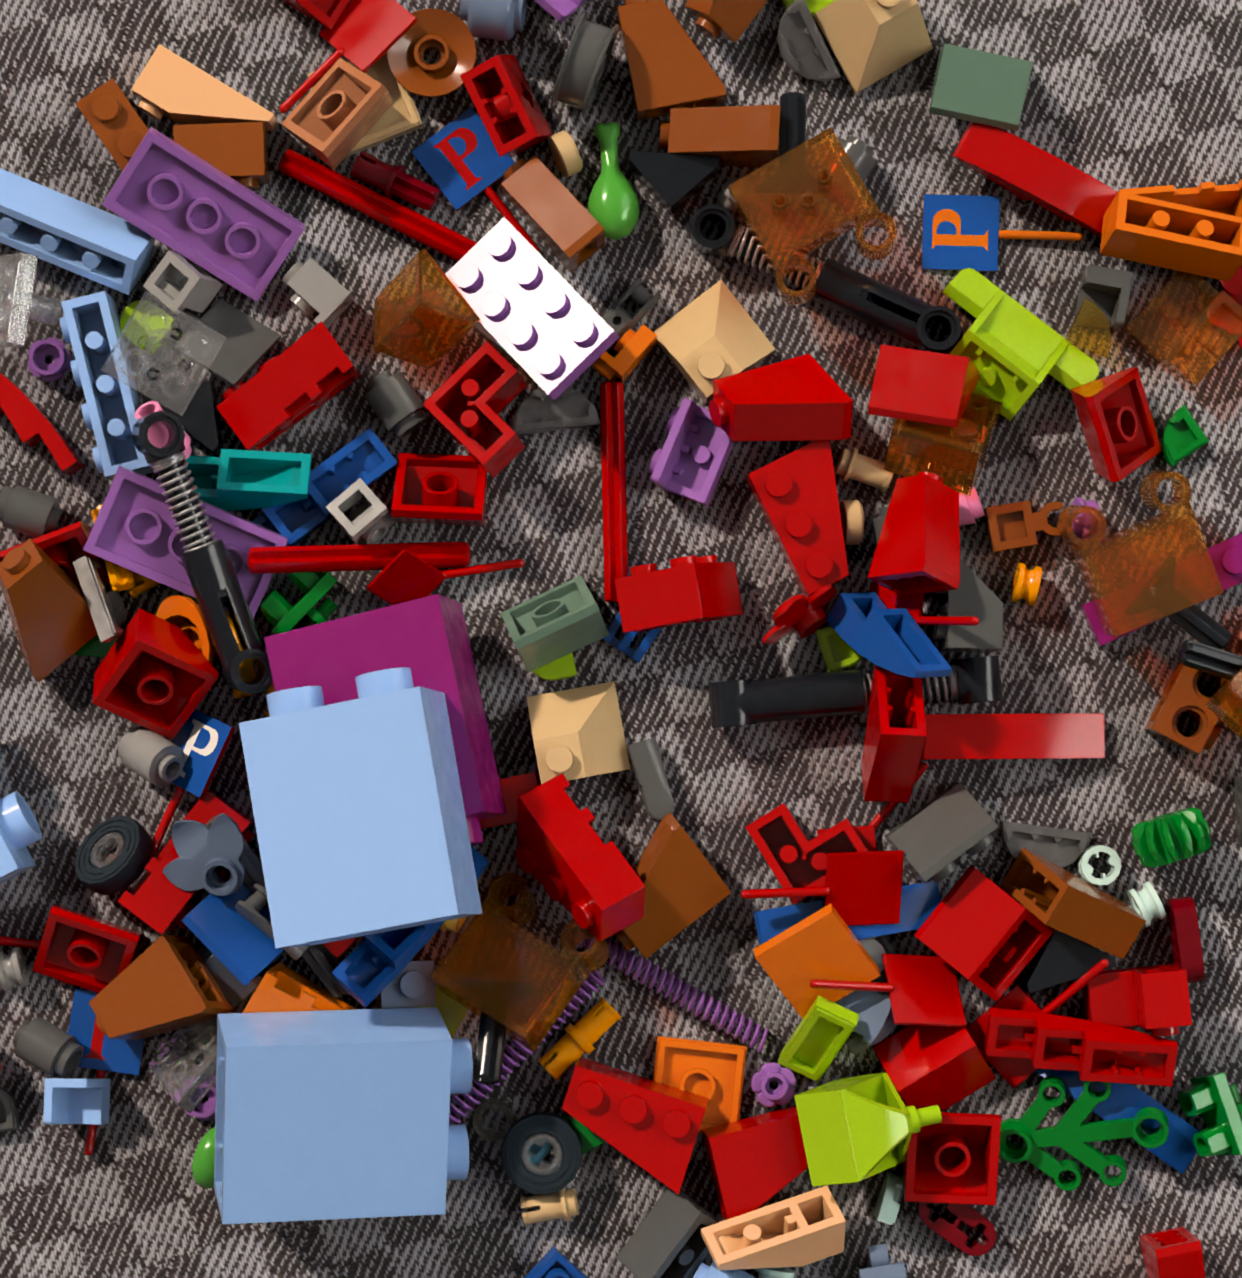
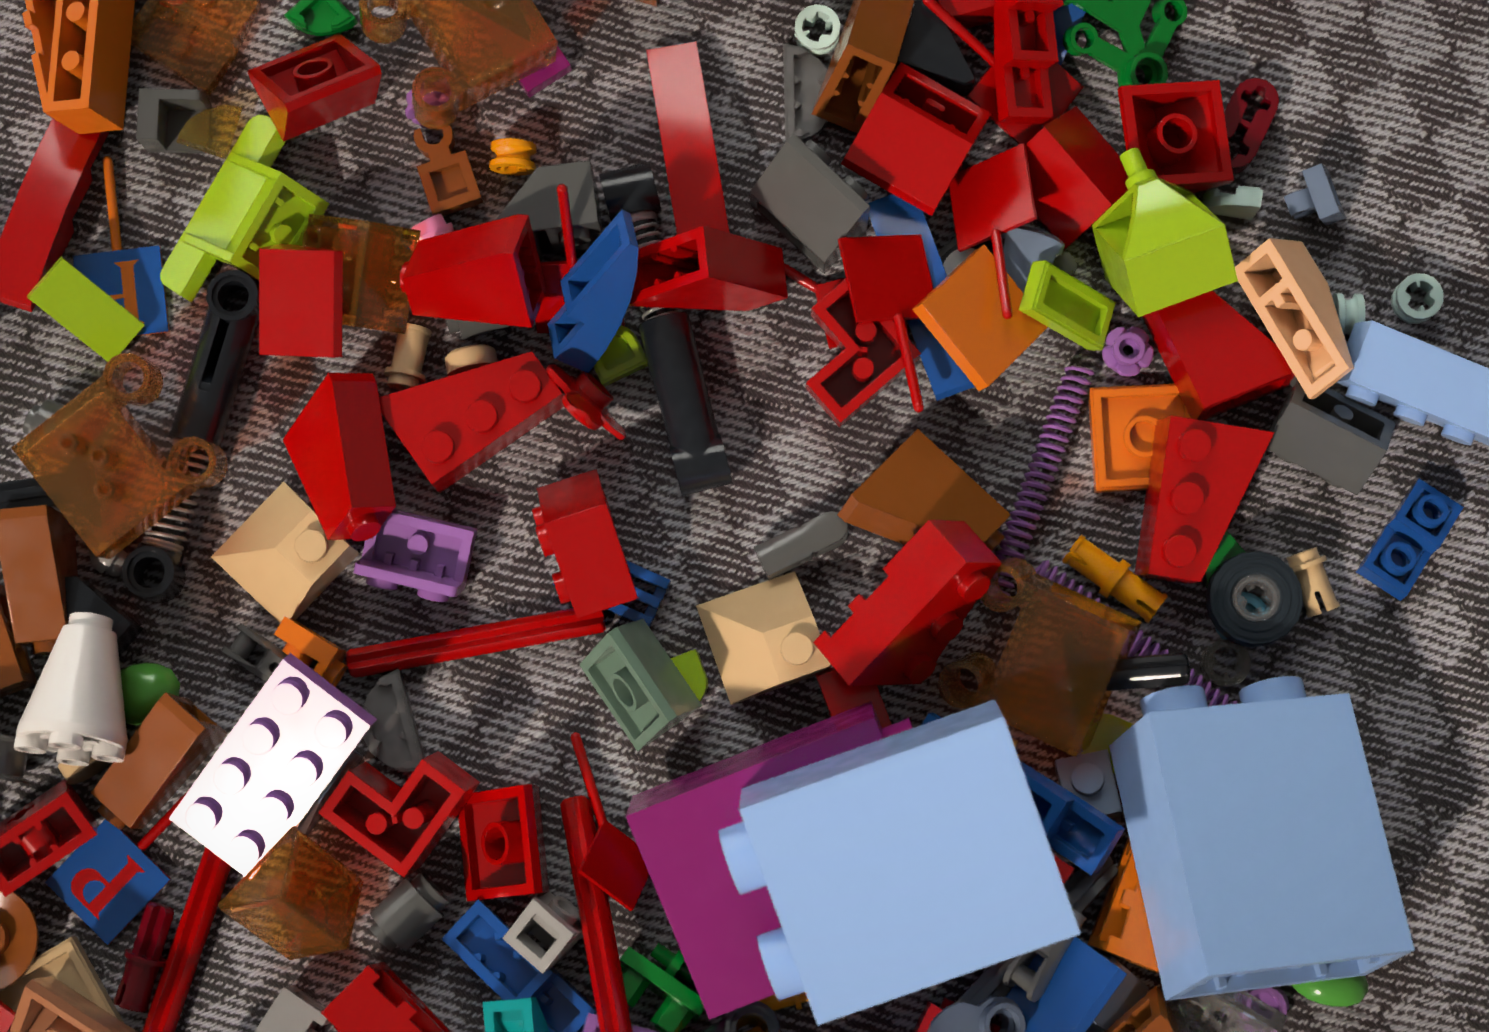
camera: 90 degrees left, 5 degrees down
(613, 156) = (78, 697): none -> white cone
(946, 202) = (85, 310): none -> lime tile

